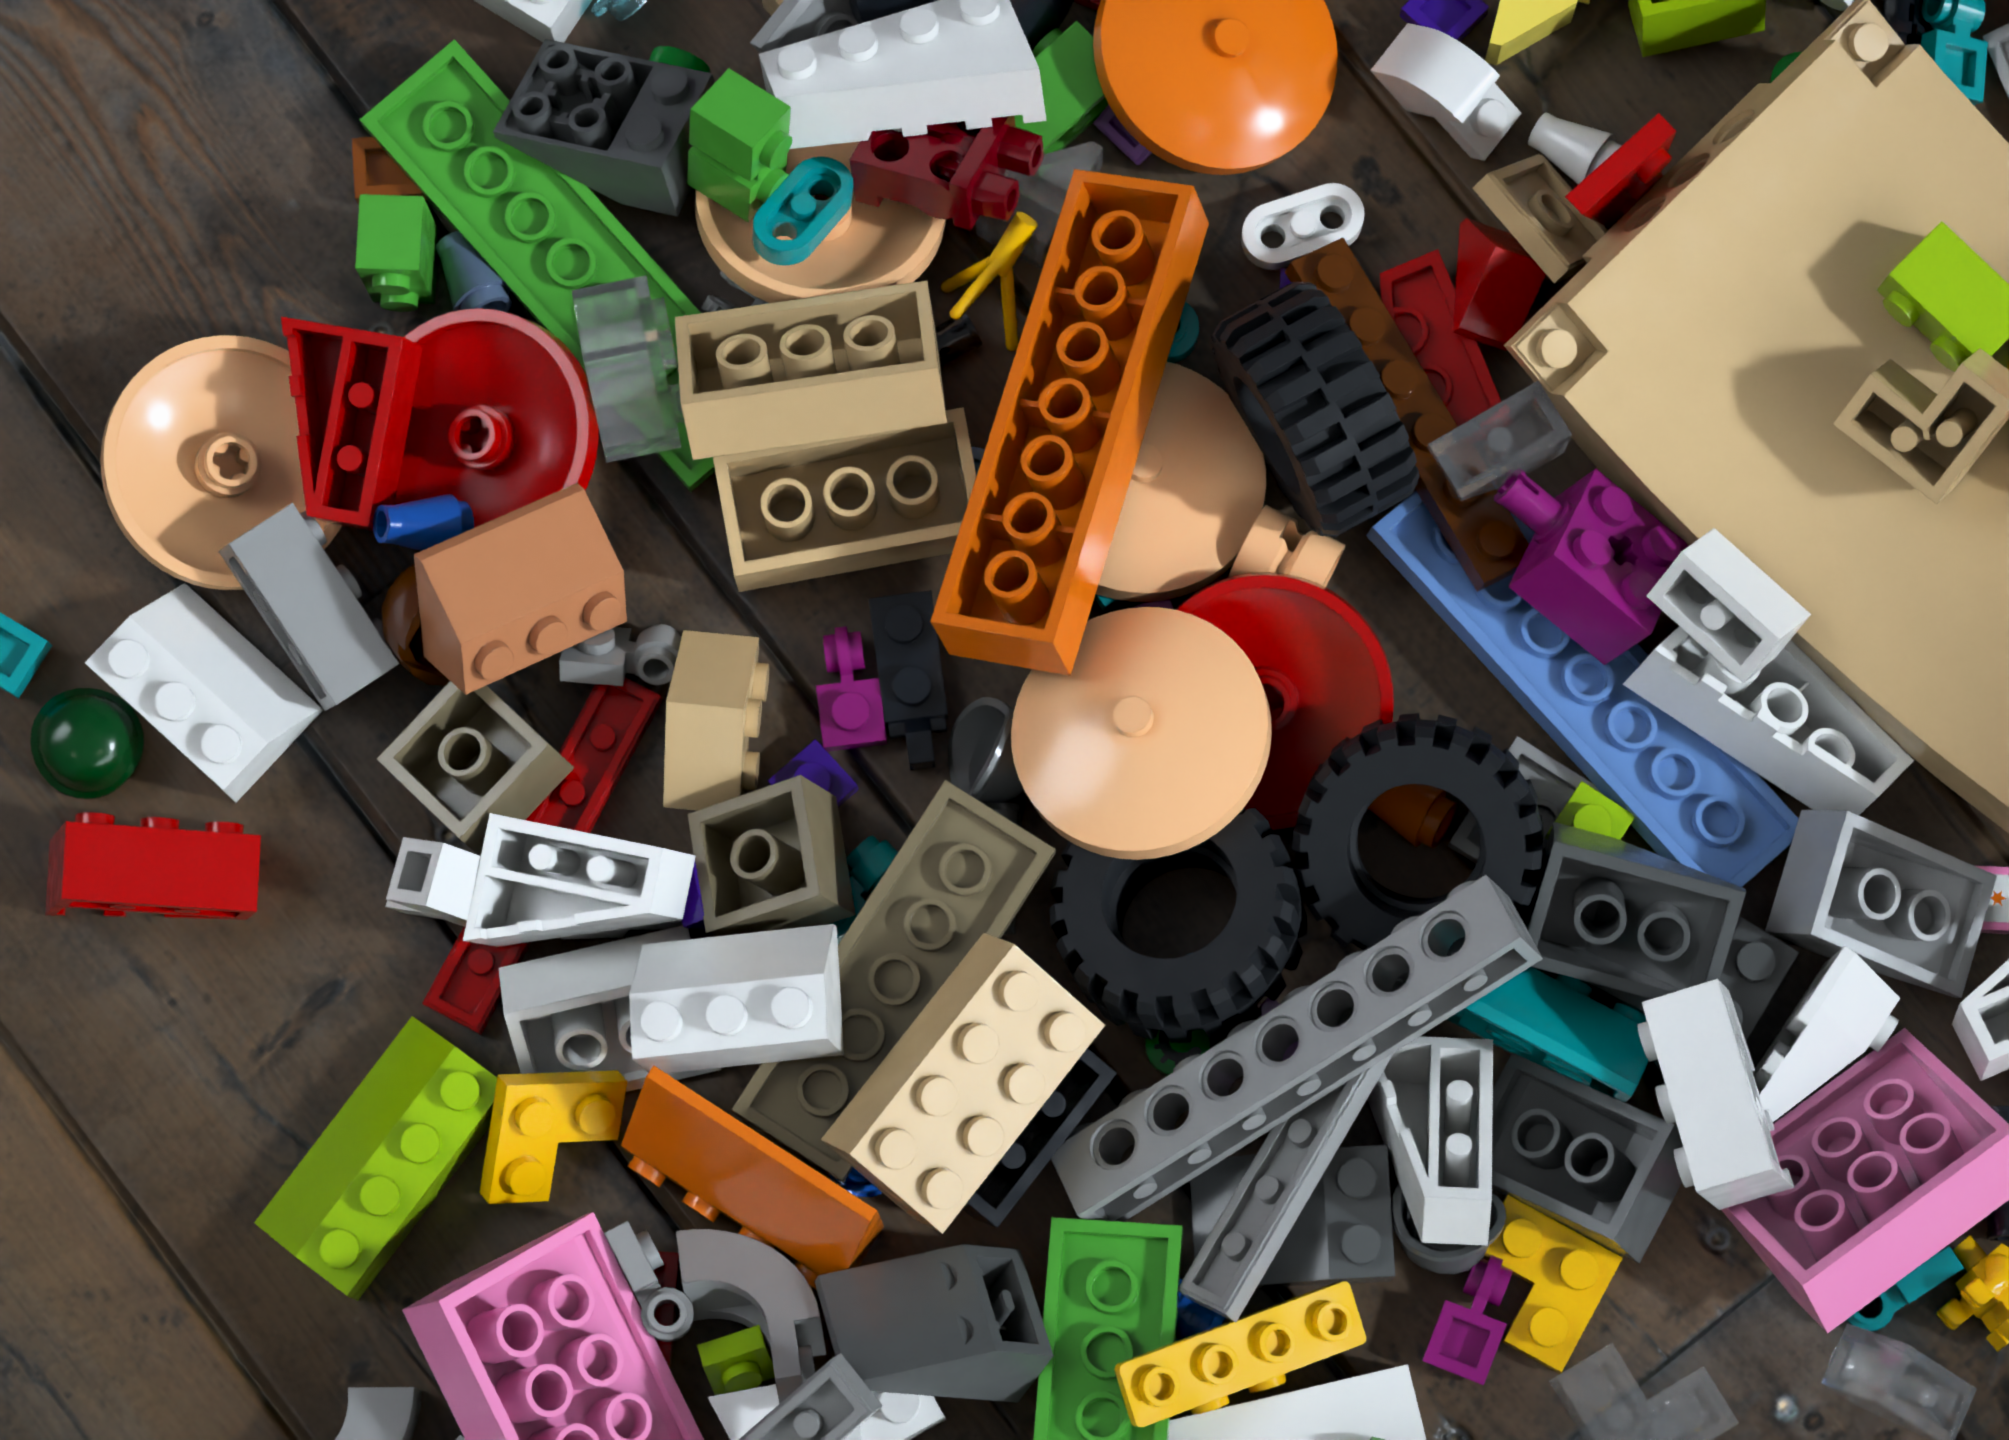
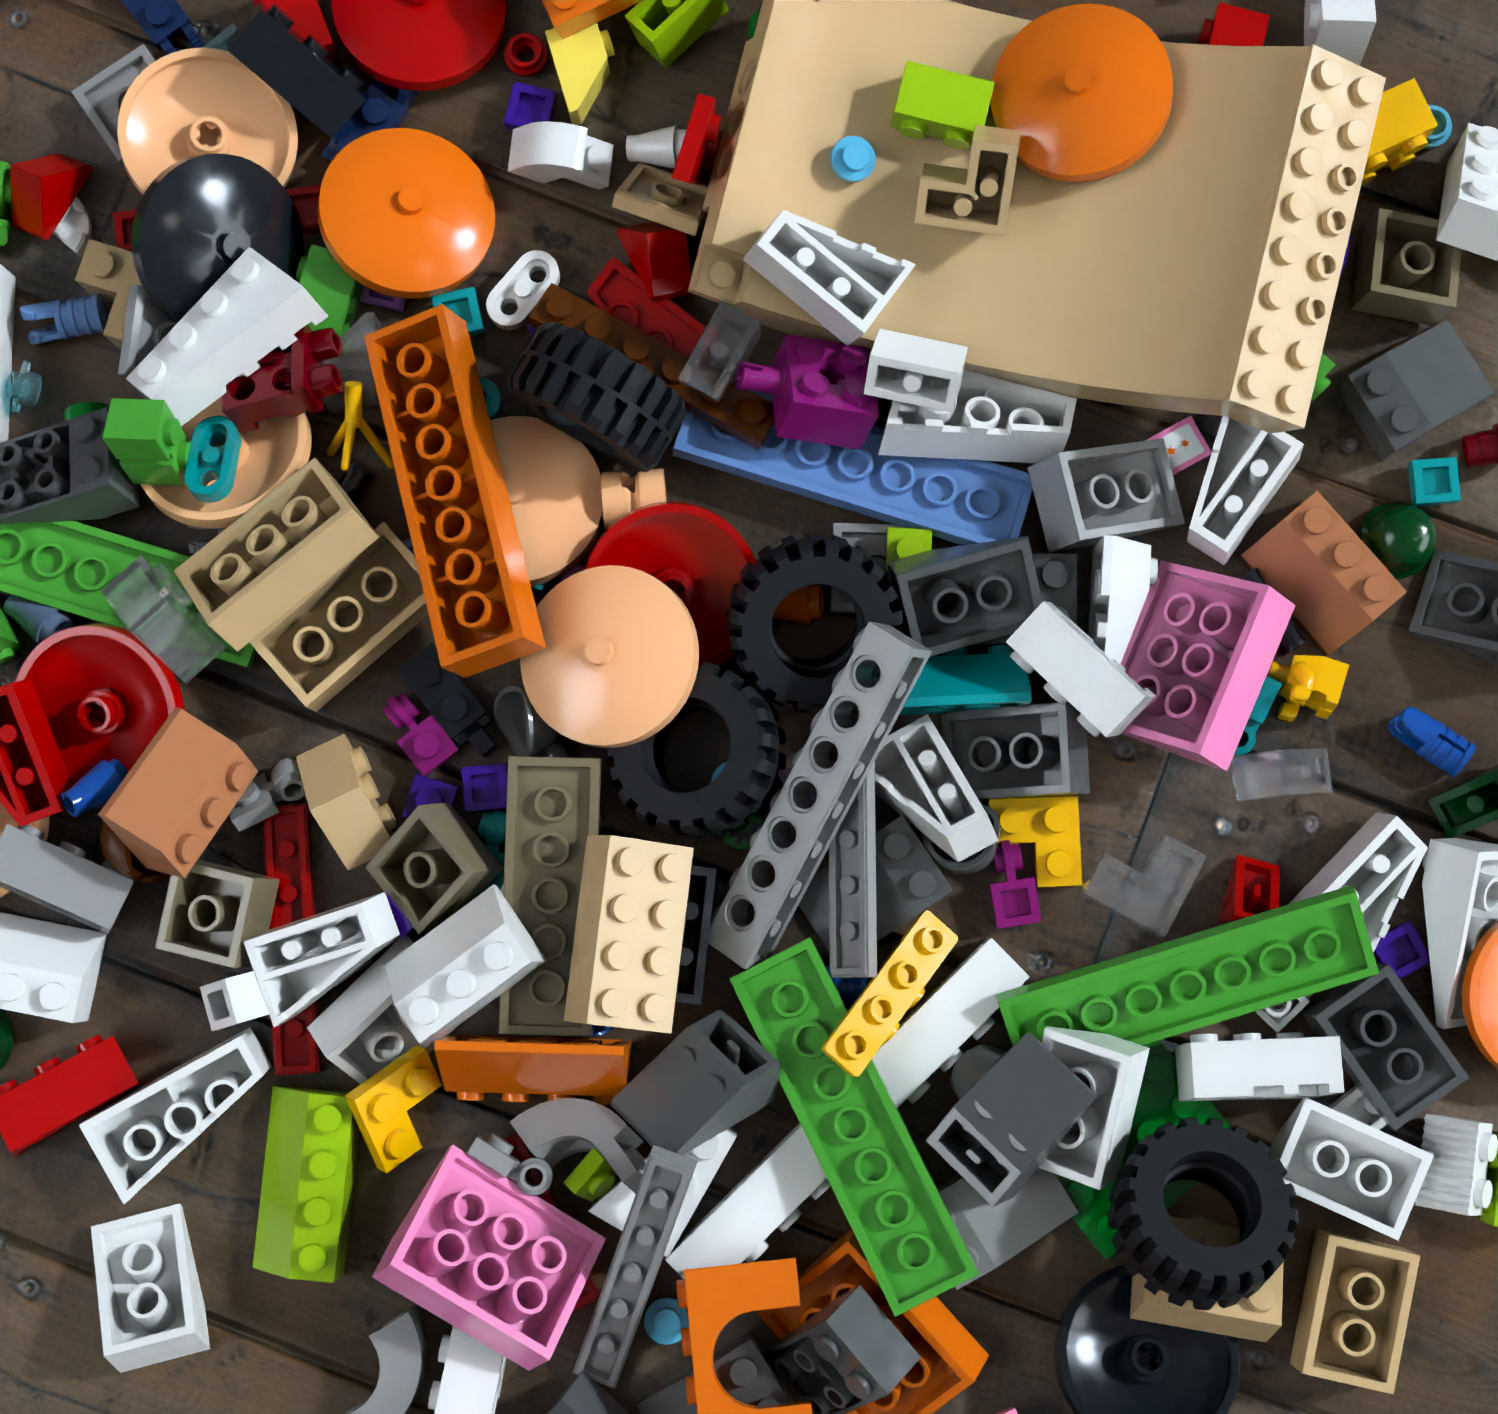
camera: 30 degrees left, 5 degrees up
(115, 1171) = (148, 1289): none -> white slope
(263, 972) = (161, 1118): none -> white wedge
(890, 806) = (485, 787): none -> dark purple plate
(1220, 203) = (465, 305): none -> teal plate
(1687, 423) = (826, 274): none -> white wedge
(1804, 302) = (852, 159): none -> medium azure plate

